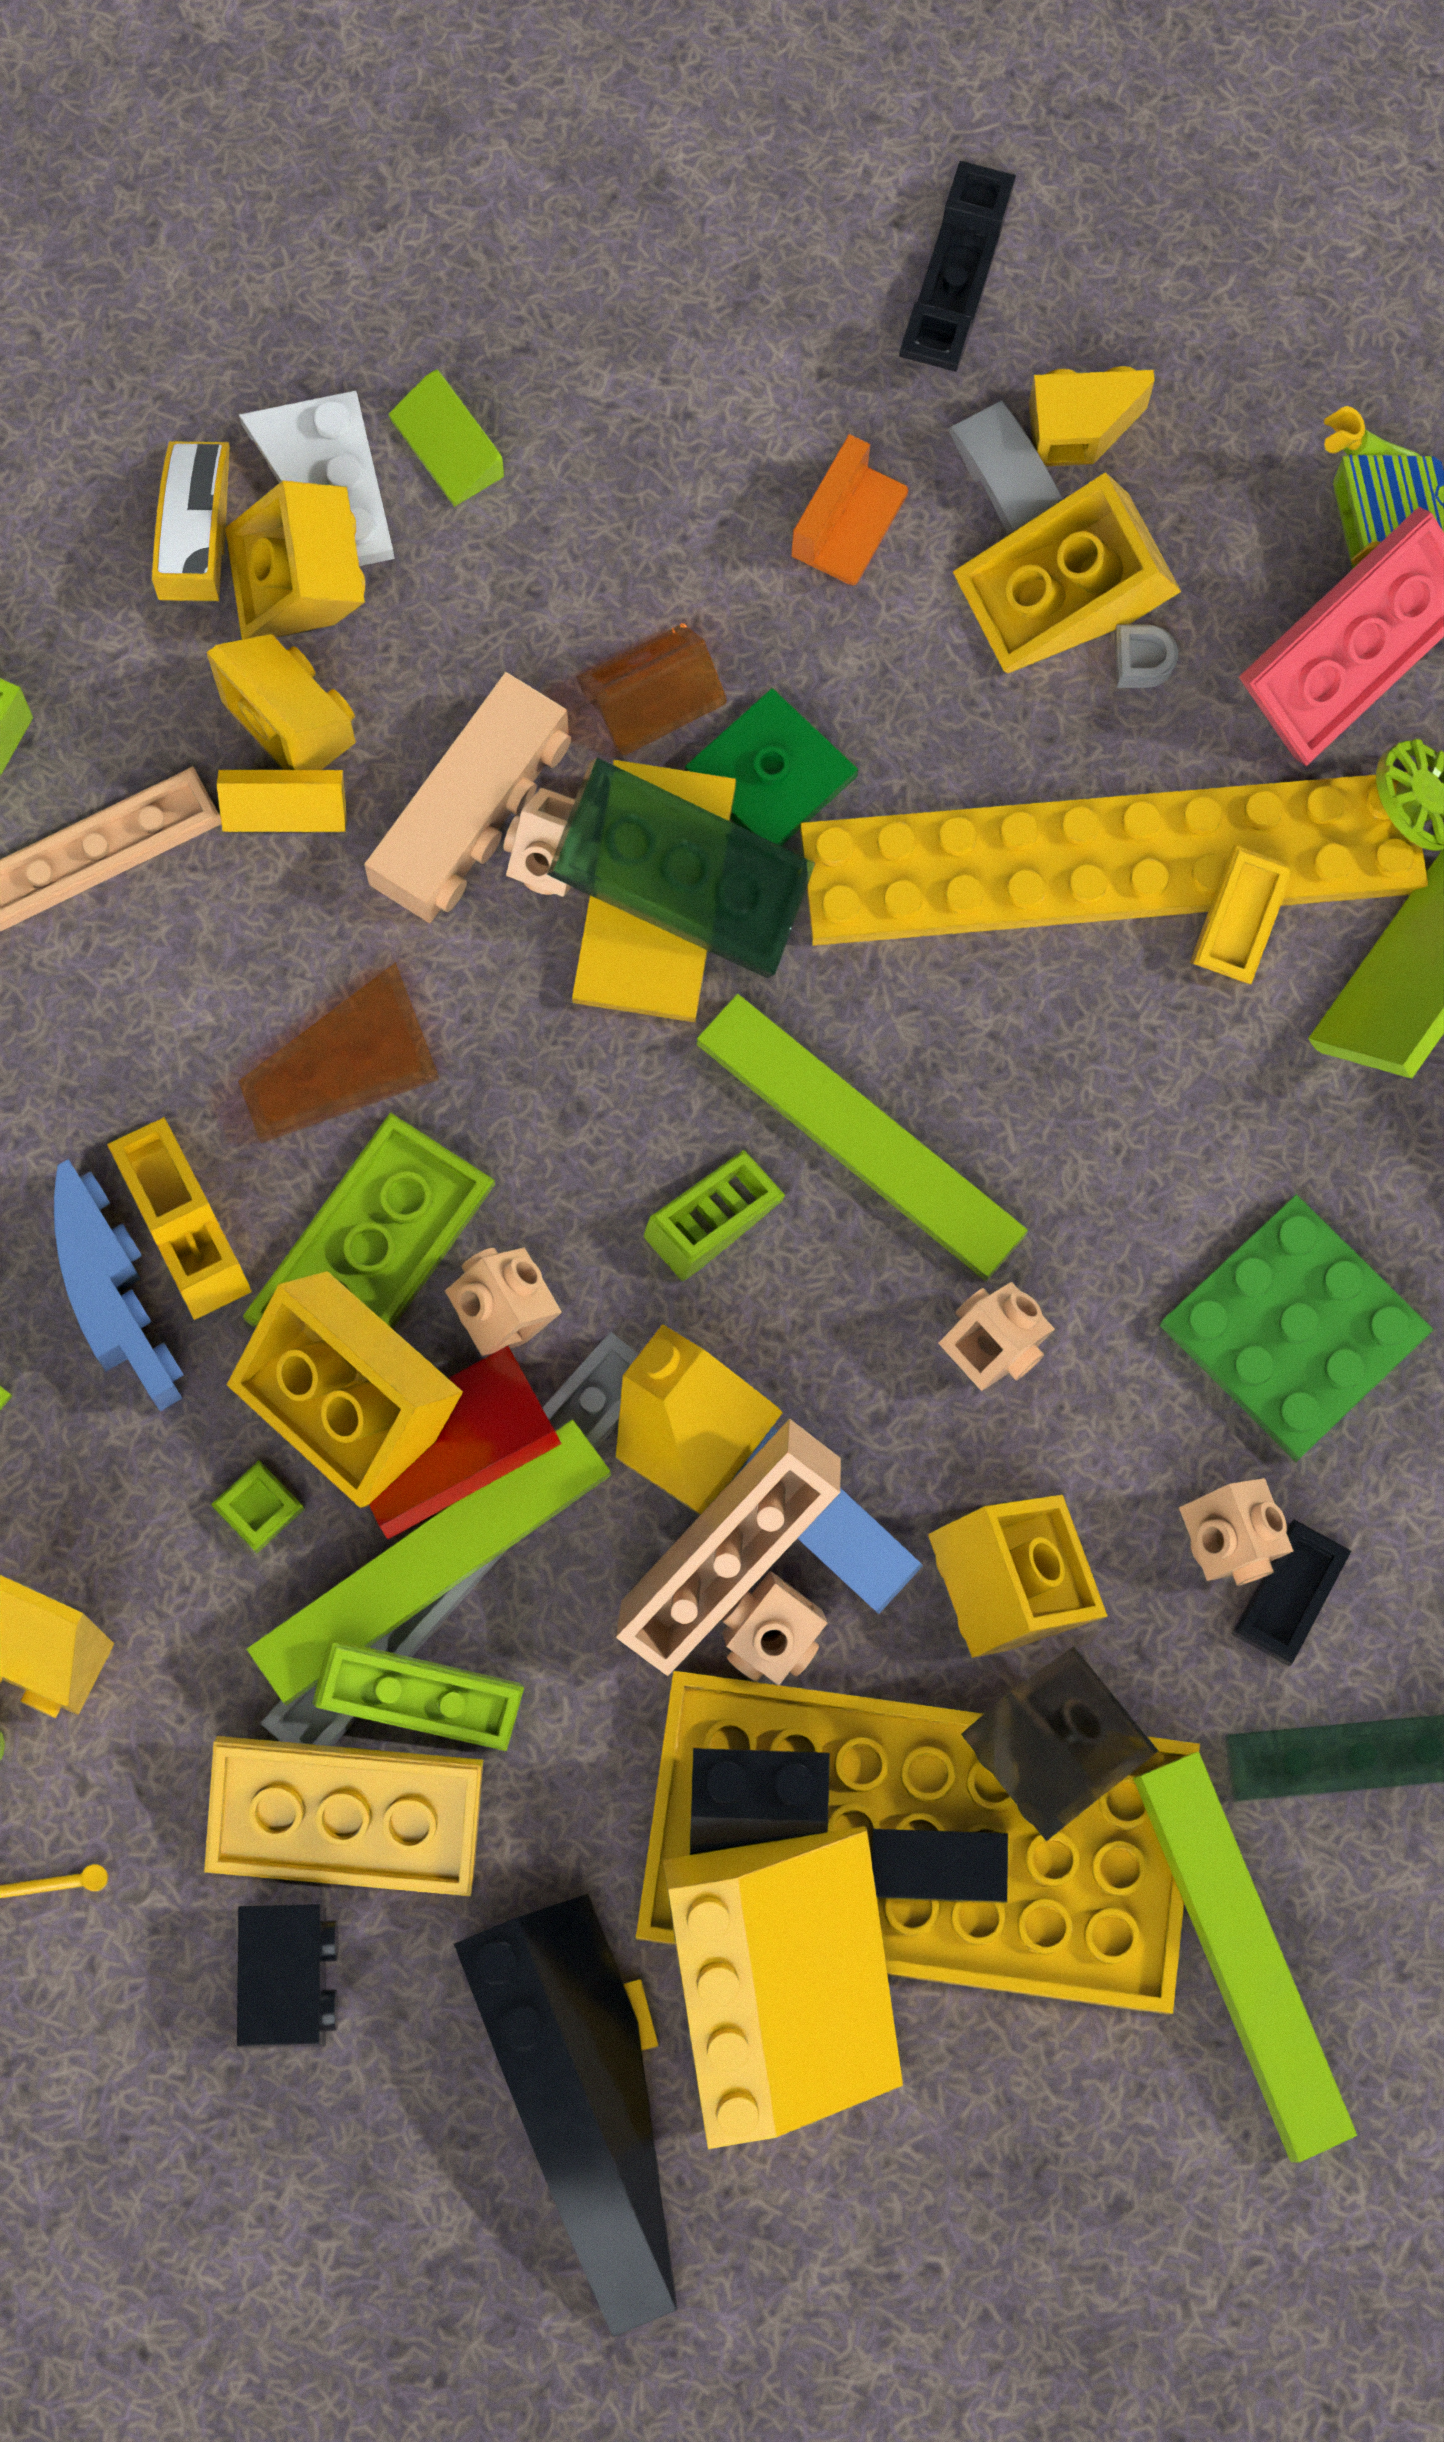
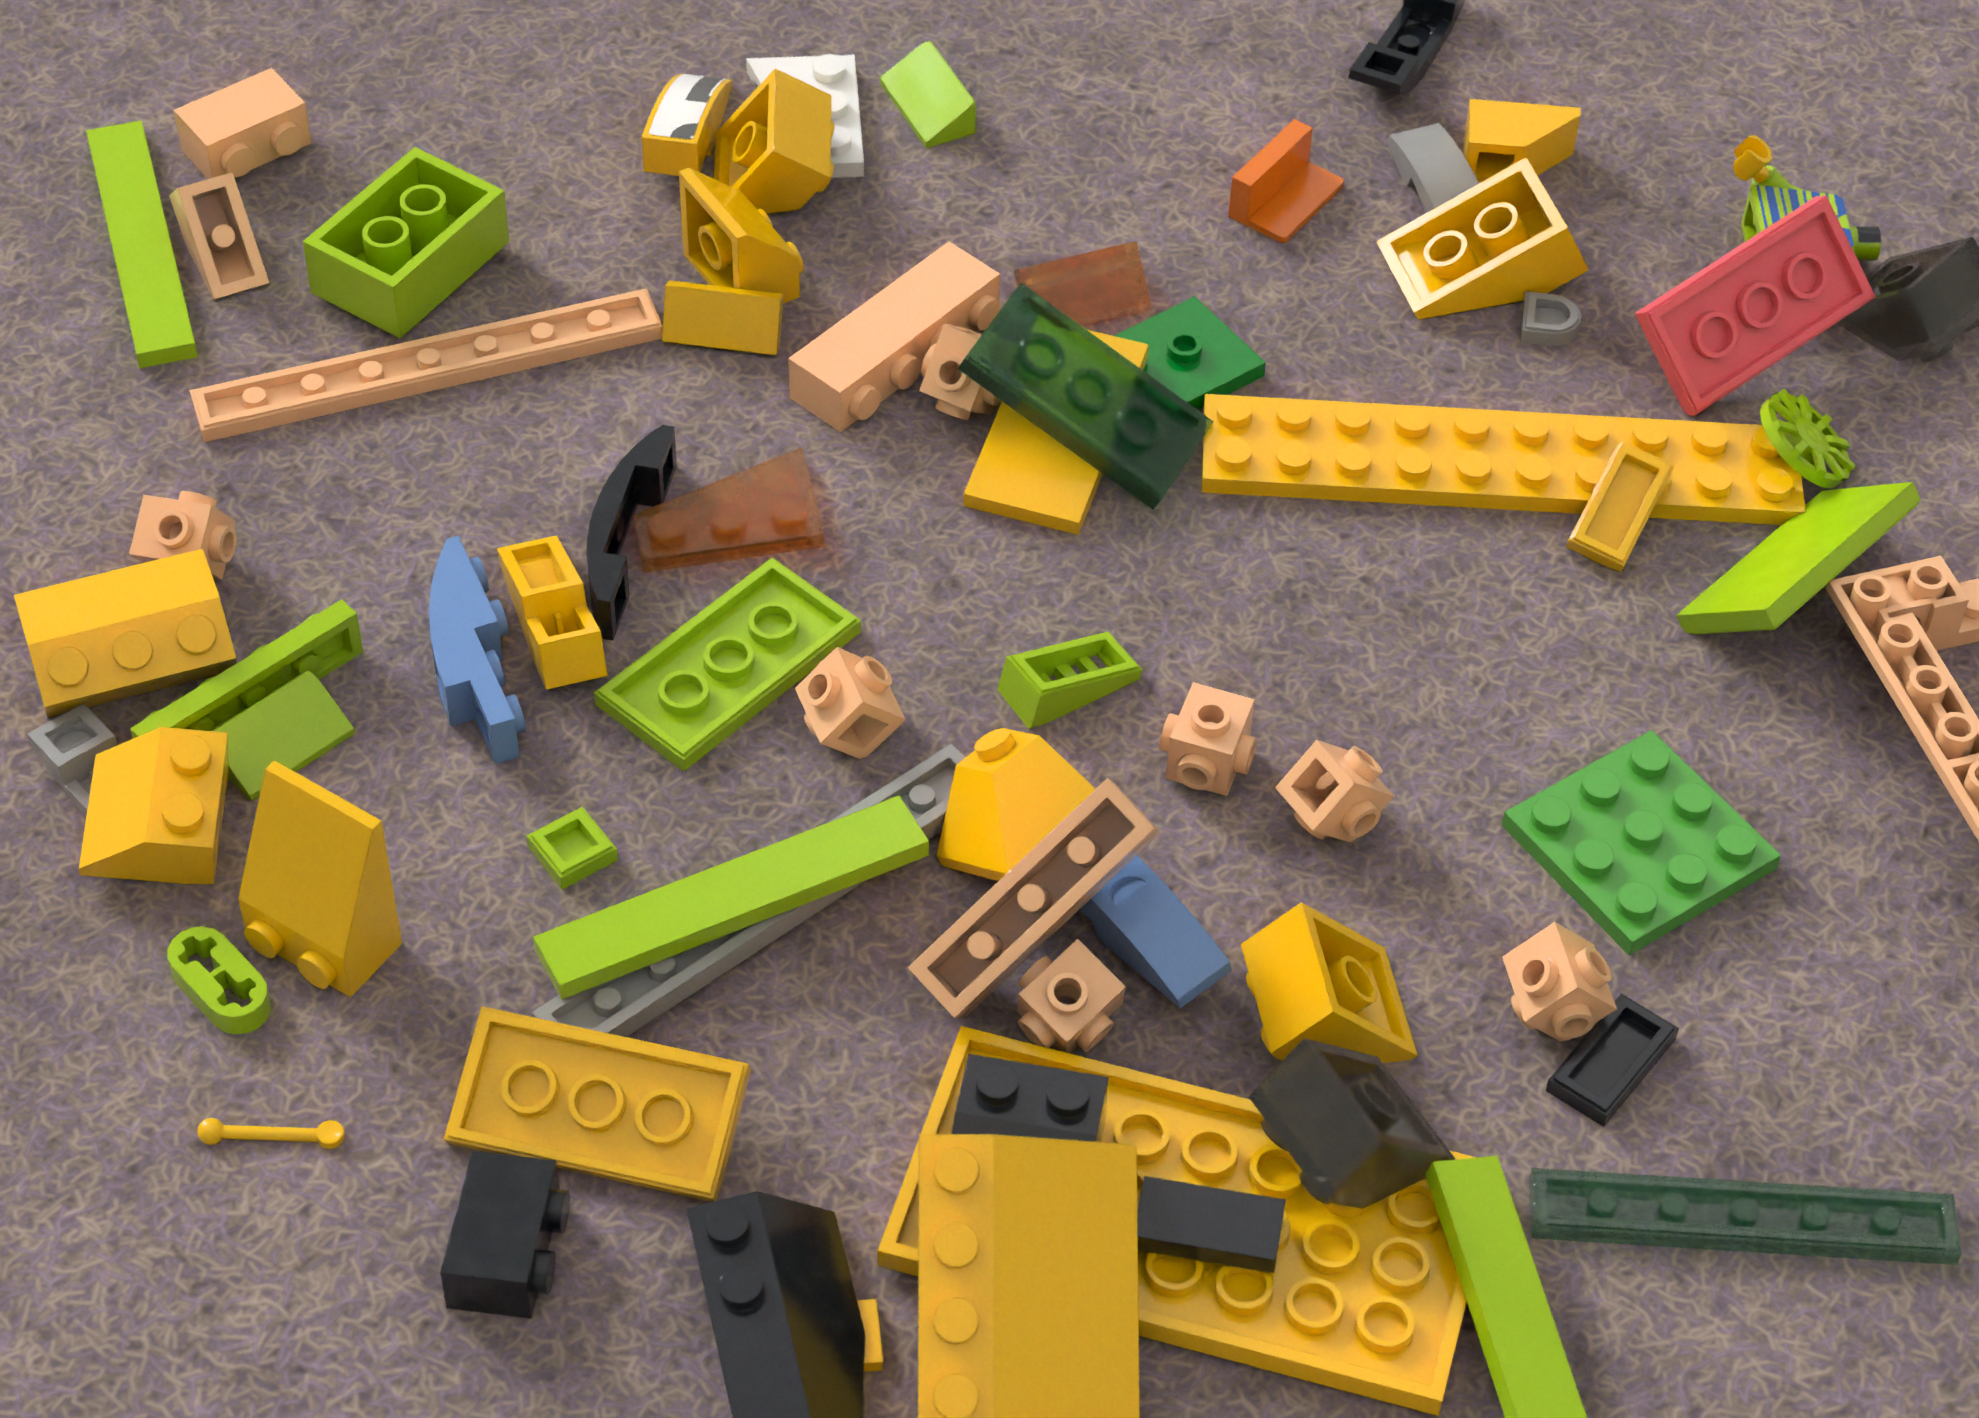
camera: 10 degrees right, 25 degrees down
(239, 1032) = (638, 479): none -> black slope
(342, 1386) = (677, 734): yellow slope -> none
(417, 1694) = (696, 1005): lime tile -> none
(485, 1437) = (773, 805): red tile -> none
(862, 1137) = (1225, 635): lime tile -> none
(869, 1269) = (1209, 739): none -> light nougat brick

